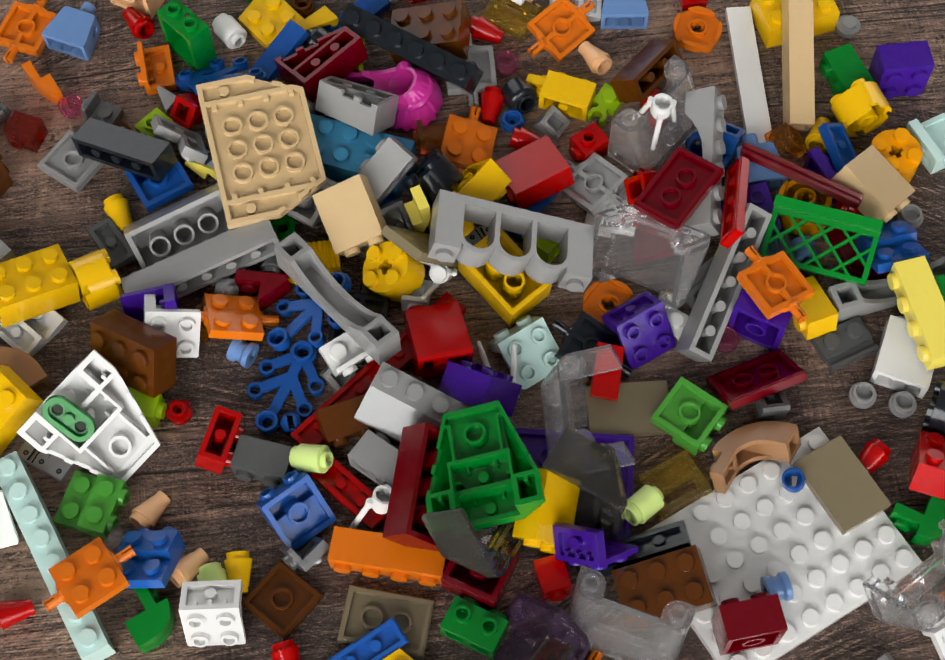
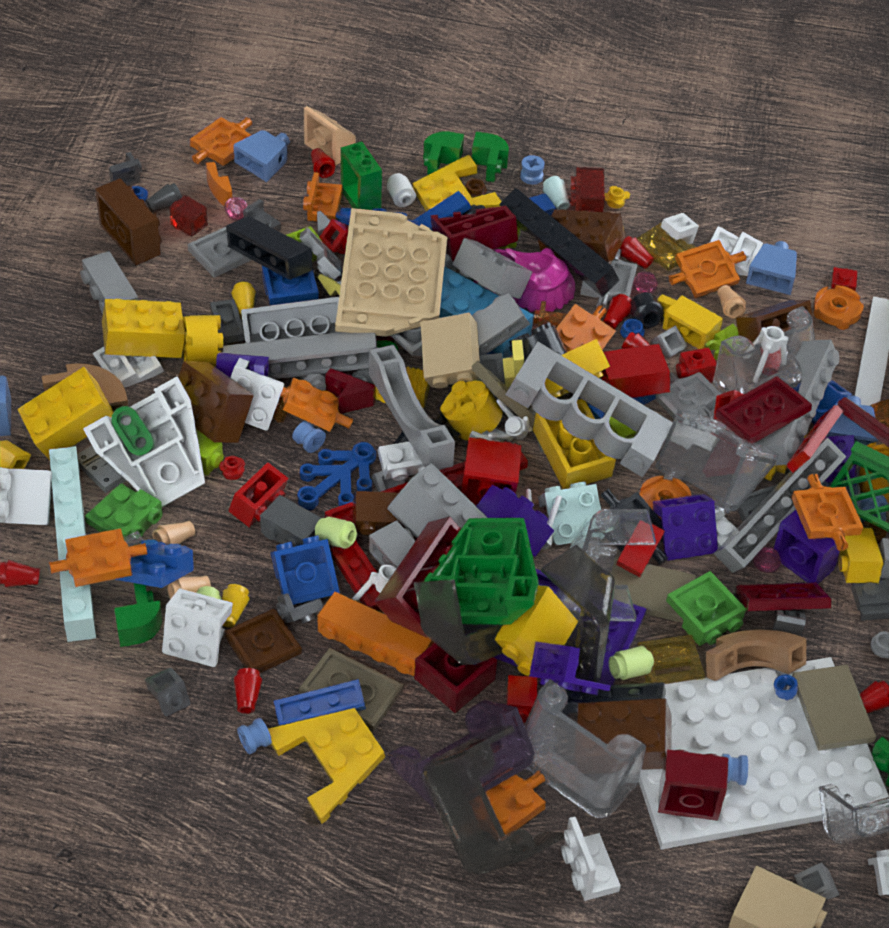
camera: 15 degrees right, 15 degrees down
(284, 424) = (325, 501): blue hinge -> none
(310, 310) = (347, 436): blue plant -> none
(474, 626) = (431, 716): green brick -> none

